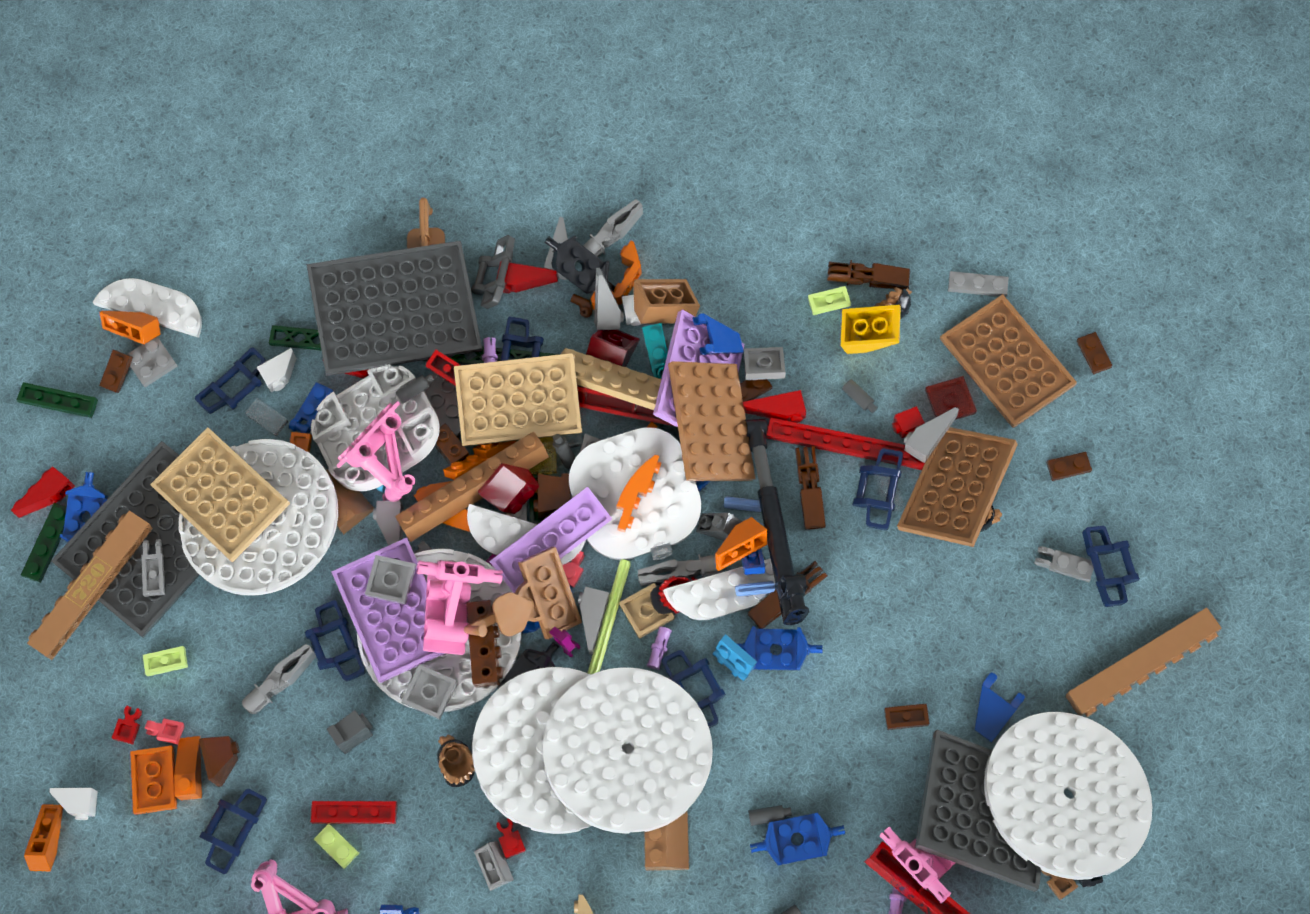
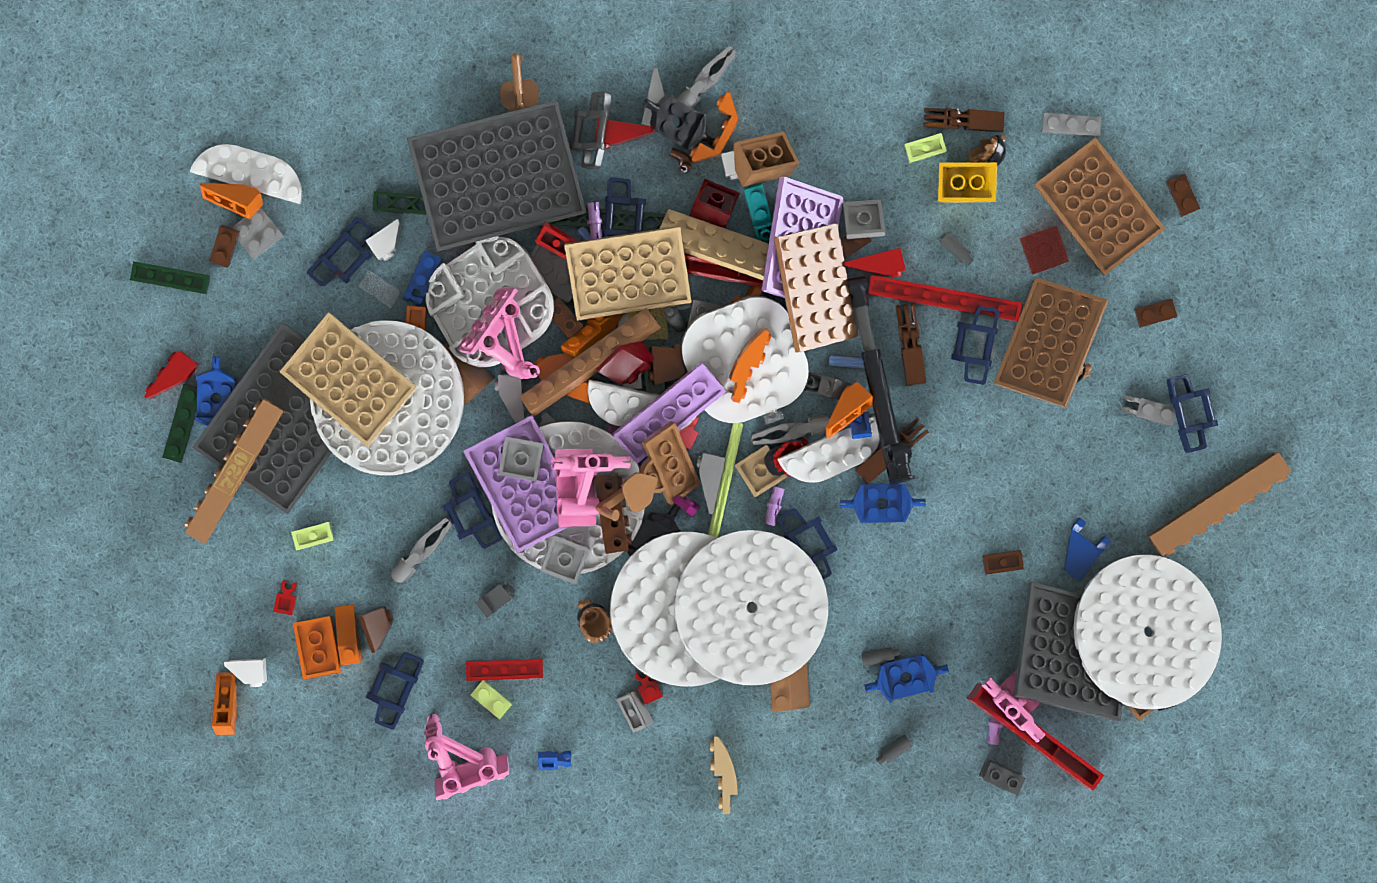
camera: 10 degrees left, 20 degrees up
(153, 570) = (291, 452): light grey hinge -> none
(168, 731) = (324, 602): coral plate -> none
(414, 388) = (526, 263): dark grey cylinder -> none
(607, 312) = (707, 169): light grey slope -> none
(722, 338) = (822, 198): blue flag -> none
(734, 658) = (844, 515): dark azure plate -> none
(755, 588) = (862, 450): light blue axle -> none
(907, 421) = (1003, 276): red brick -> none
(927, 436) = (1021, 295): light grey slope -> none

